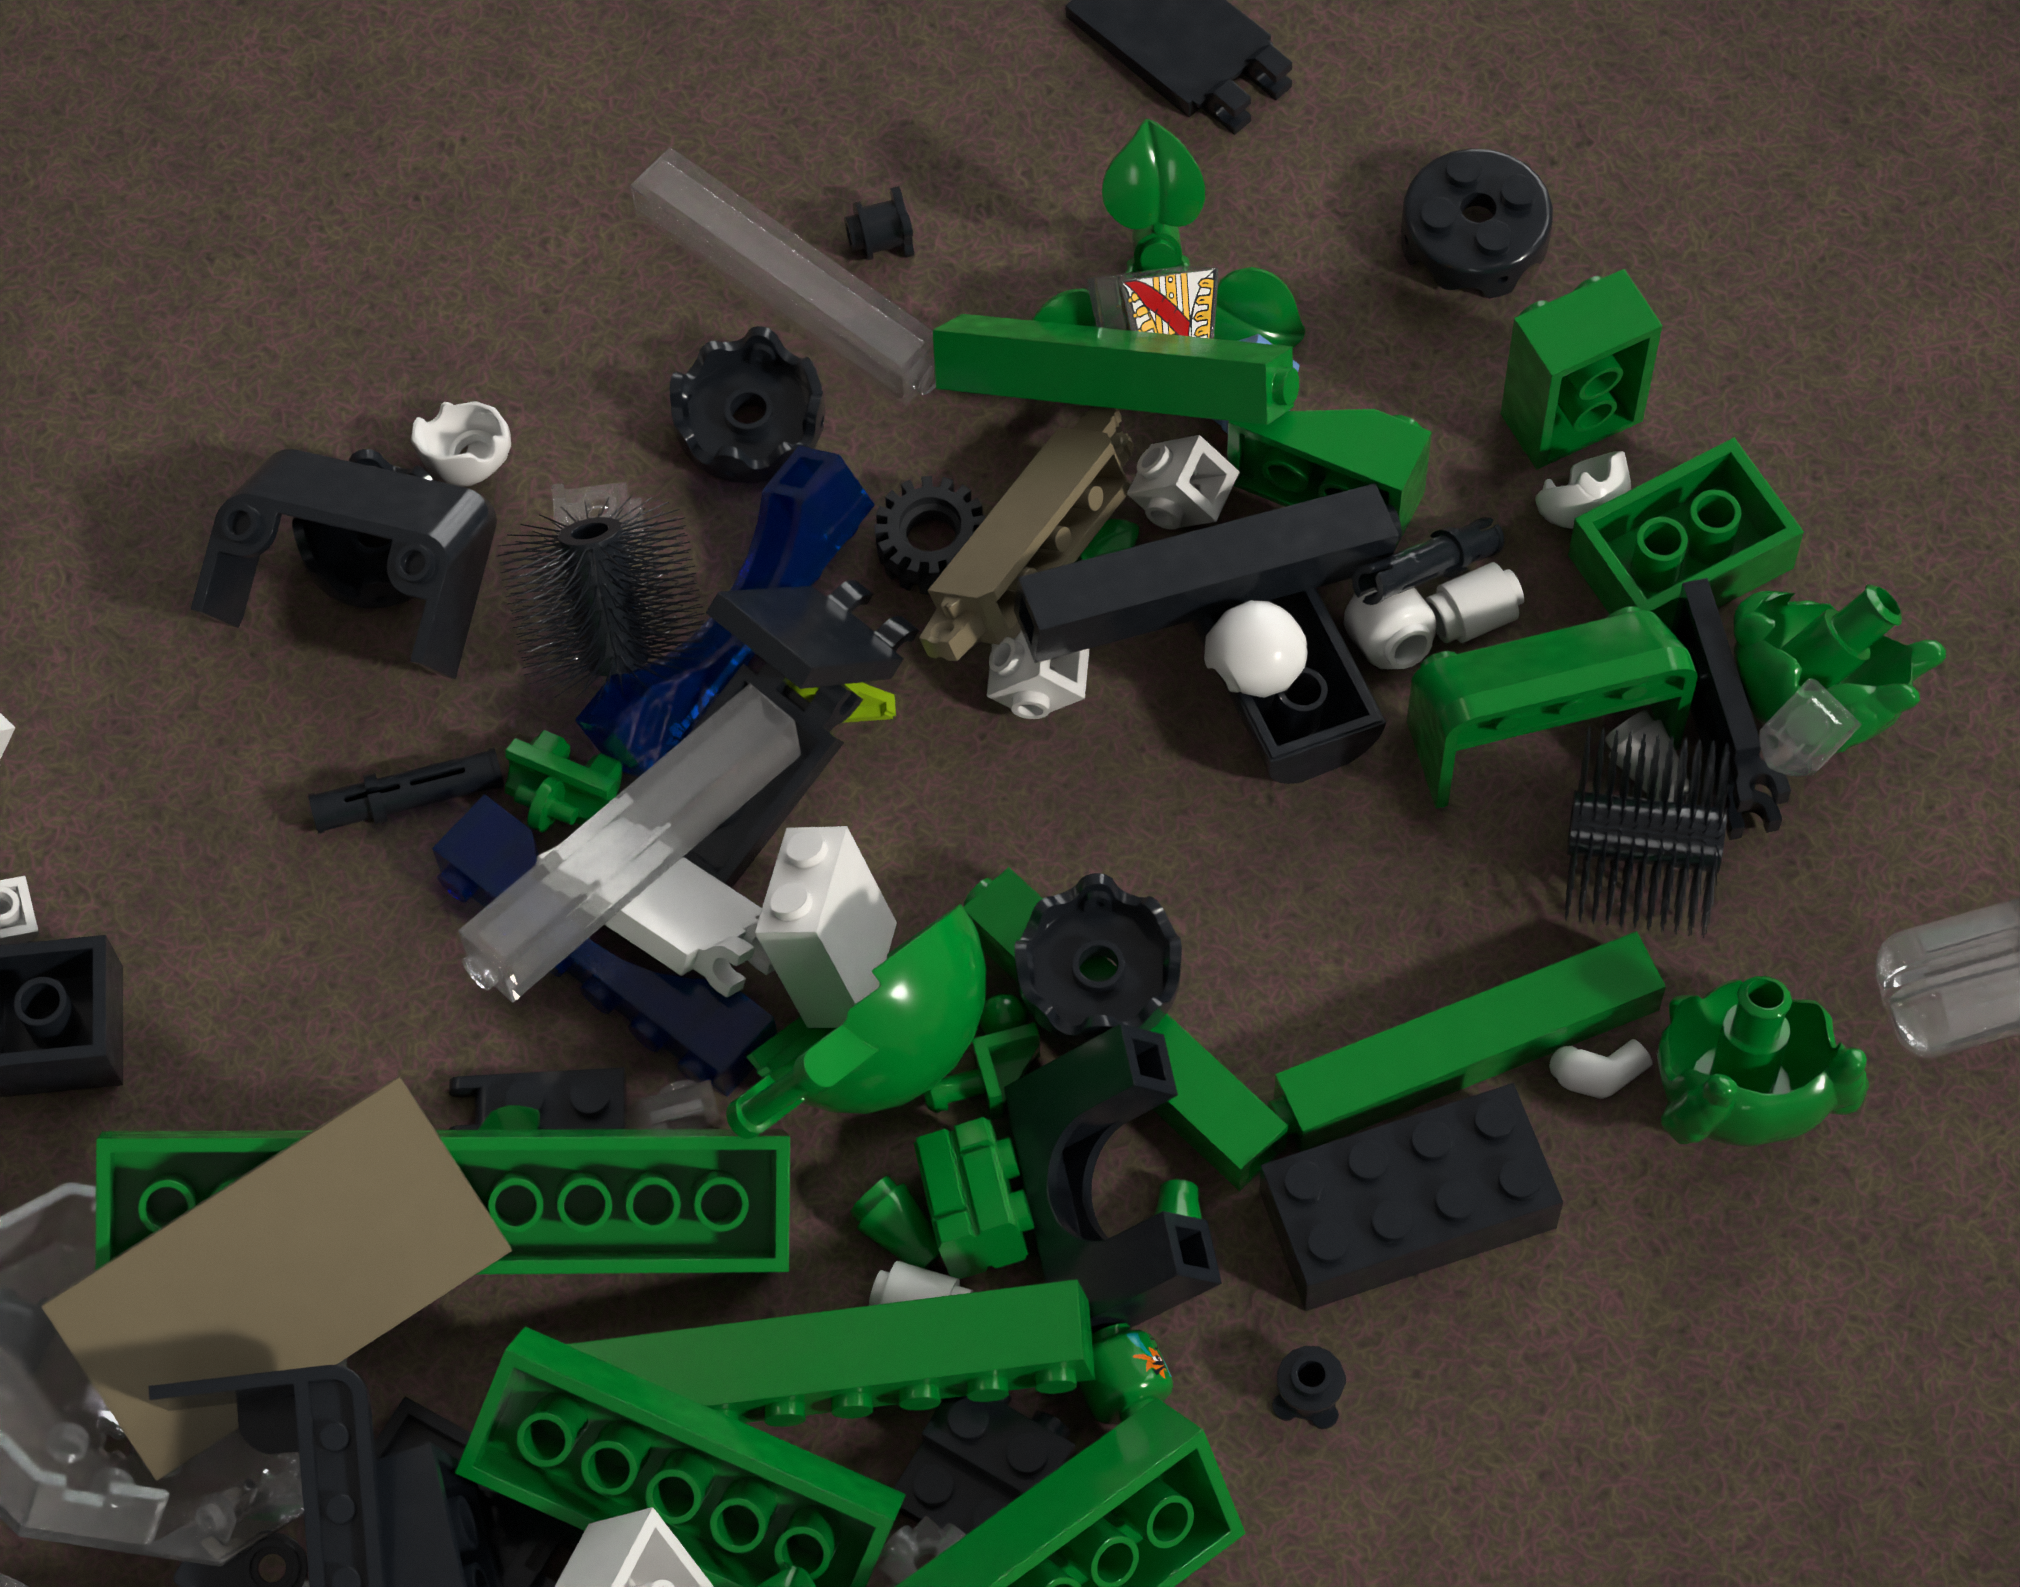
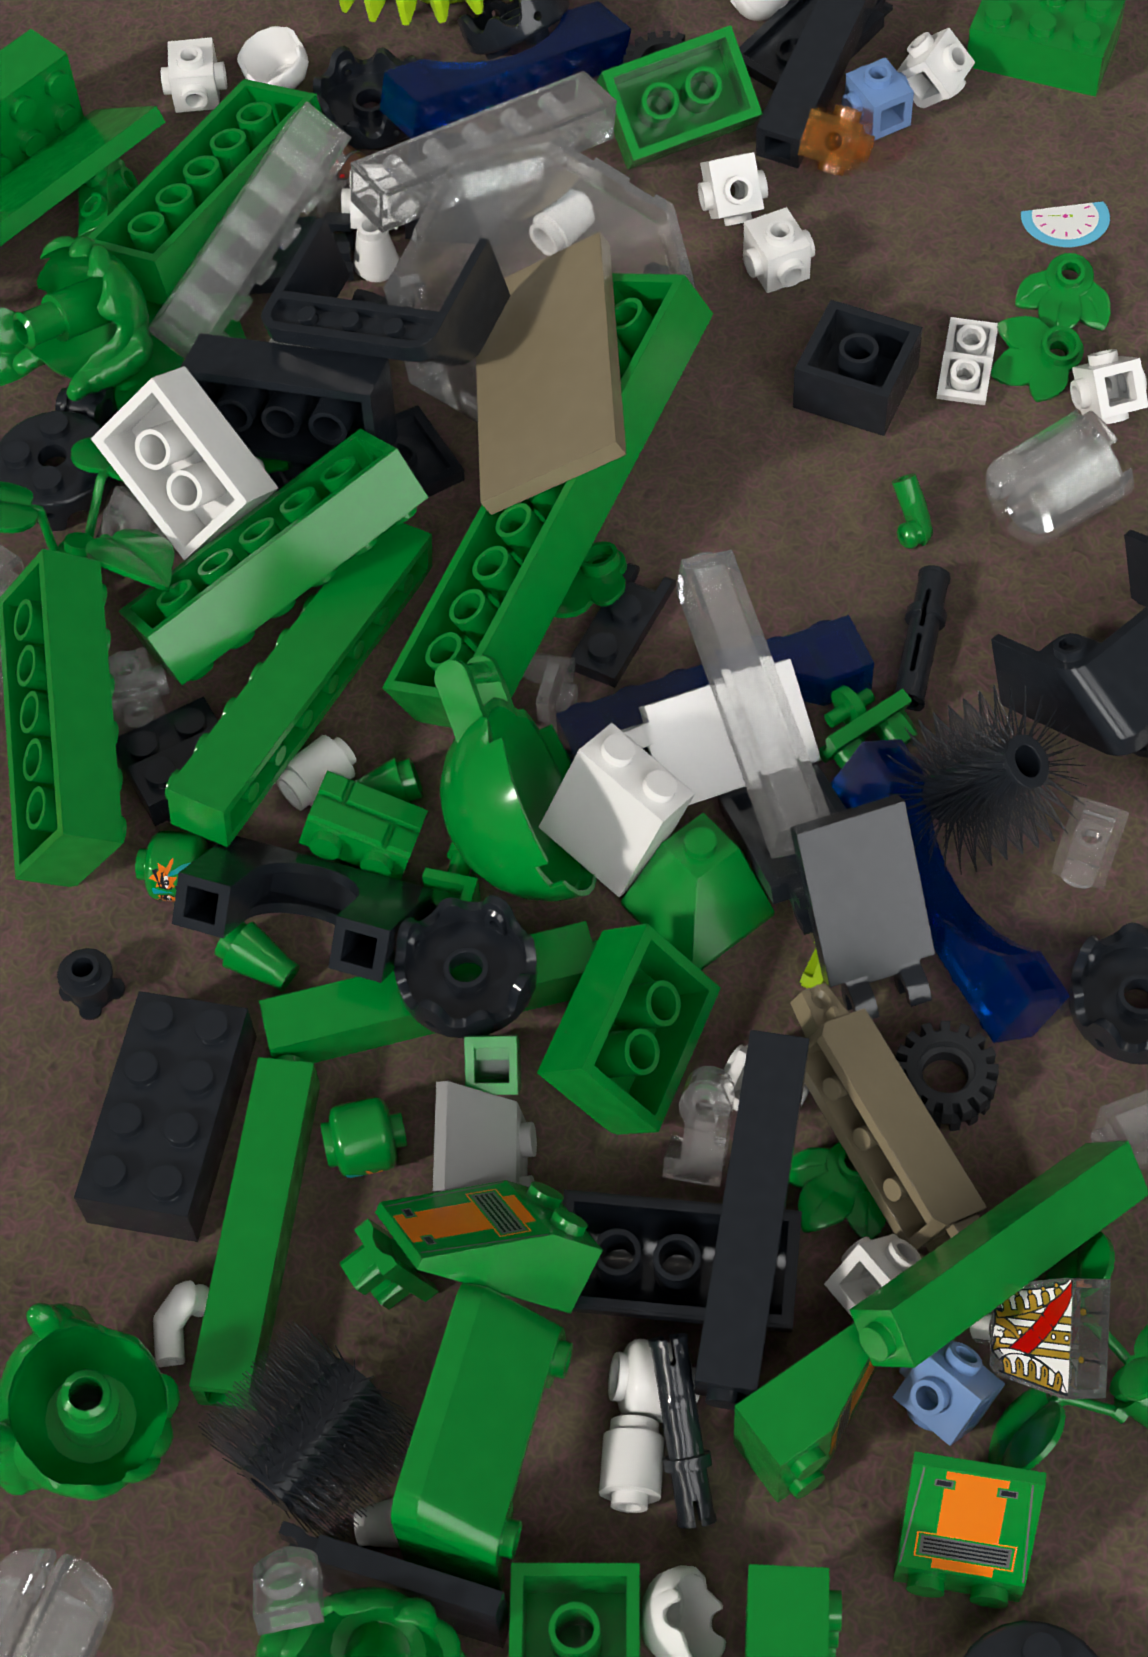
camera: 120 degrees right, 5 degrees down
(128, 735) = (1057, 479): none -> clear cylinder
(233, 873) = (915, 510): none -> green arm
(888, 832) = (699, 893): none -> green slope
(1065, 800) = (629, 1030): none -> green brick
(1129, 691) = (707, 1115): none -> clear leg
(1170, 885) = (493, 1063): none -> green leg
(1256, 648) = (665, 1223): white hair -> none
(1279, 865) = (479, 1139): none -> light grey slope
(1316, 998) = (363, 1137): none -> green head
(1374, 308) = (968, 1529): none -> green slope
(1377, 760) = (497, 1238): none -> green slope
(1433, 880) = (384, 1268): none -> green hips

